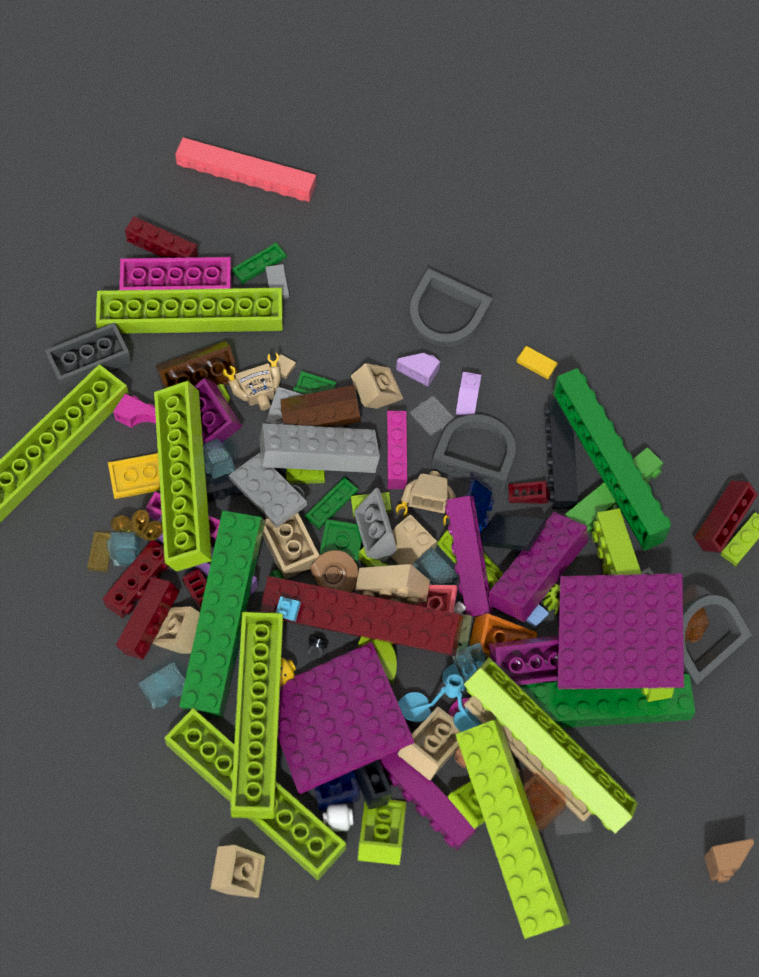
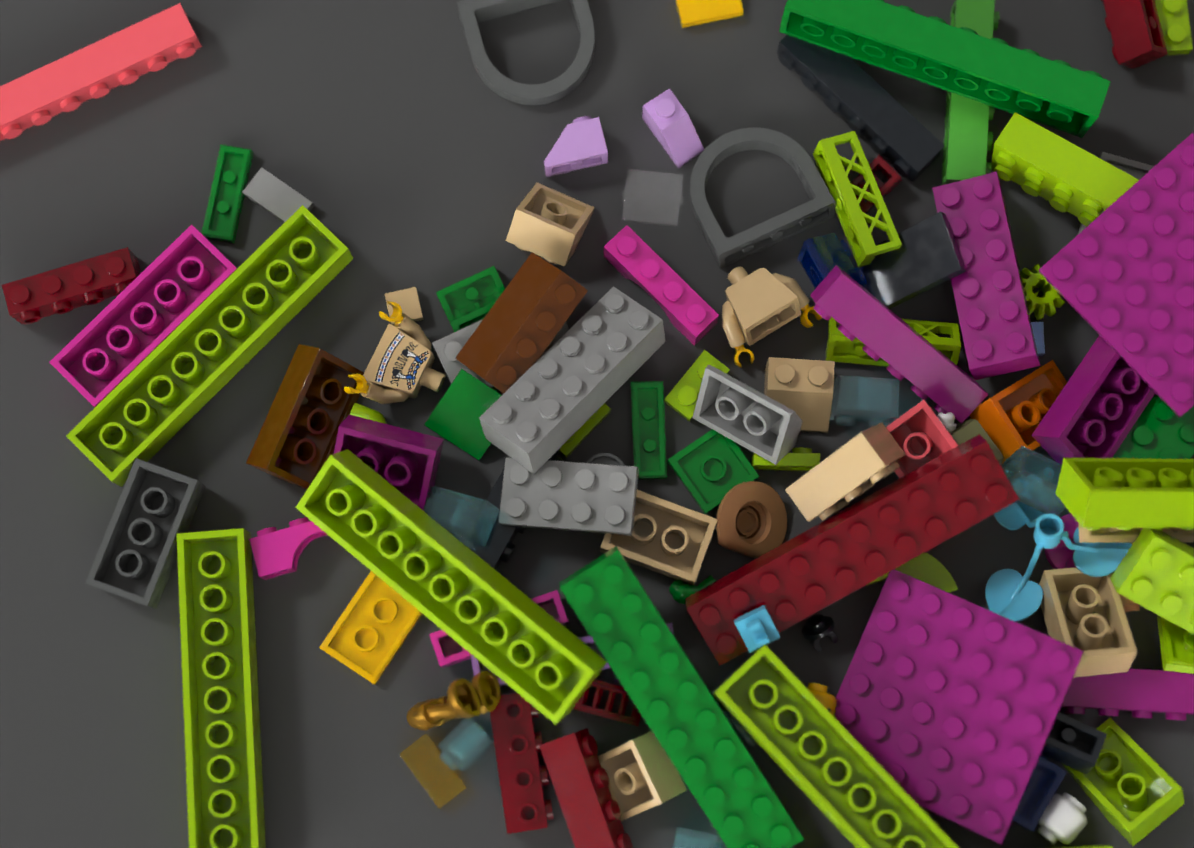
camera: 40 degrees left, 15 degrees up
(253, 423) = (459, 412): none -> green slope
(510, 486) = (847, 205): none -> lime fence

